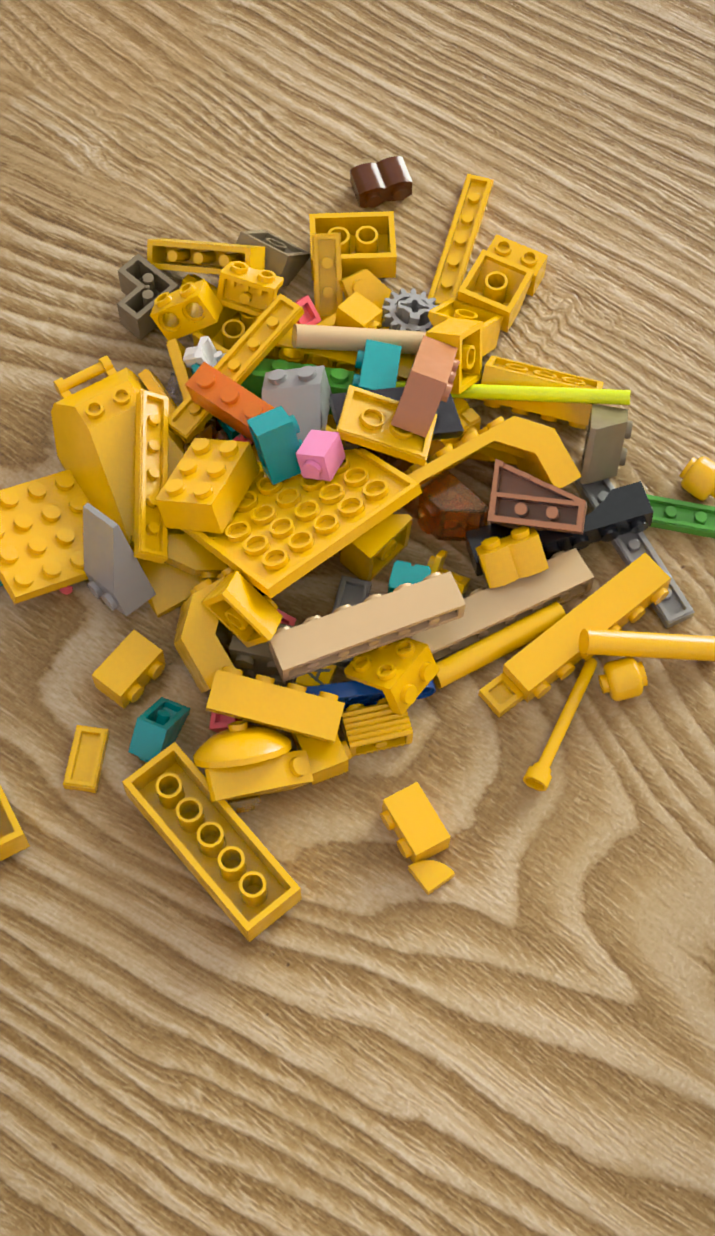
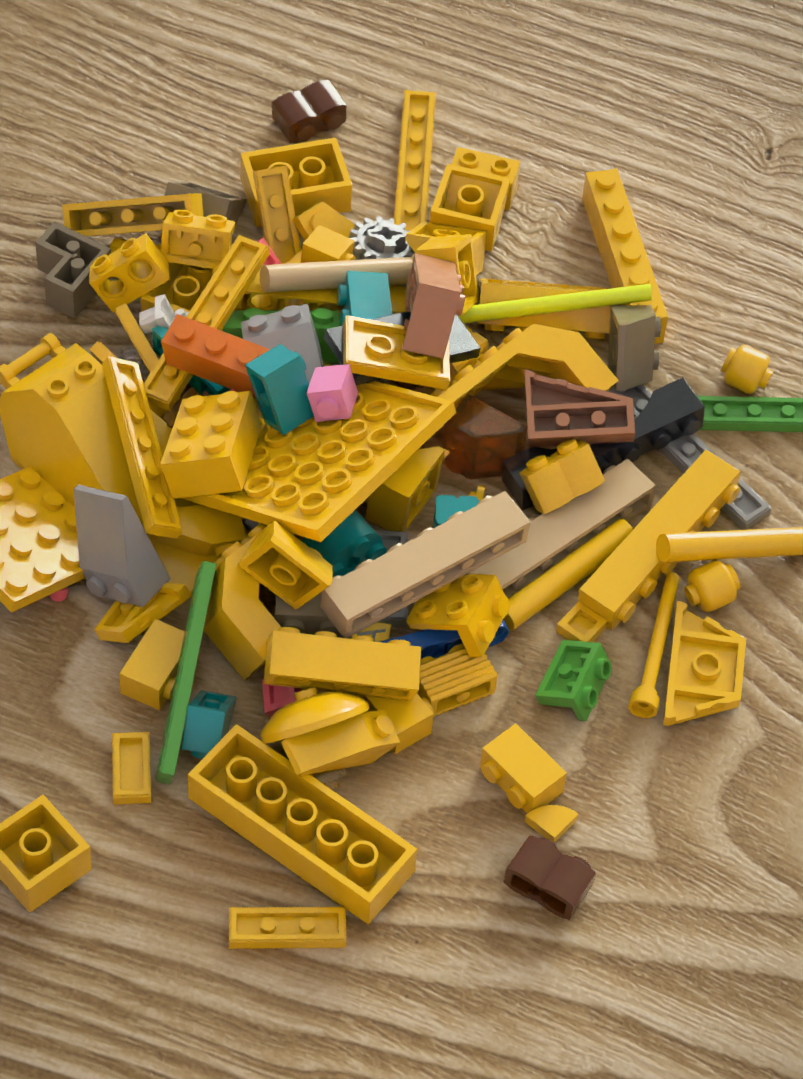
camera: 15 degrees left, 10 degrees down
(113, 625) = (127, 620): none -> yellow wing
(145, 684) = (185, 673): none -> bright green tile
(180, 931) = (287, 927): none -> yellow tile
(312, 594) = (349, 545): none -> teal brick
(415, 928) = (549, 876): none -> reddish brown brick
(483, 744) = (575, 677): none -> bright green bracket
(597, 754) = (703, 668): none -> yellow wing
(619, 343) = (620, 238): none -> yellow brick

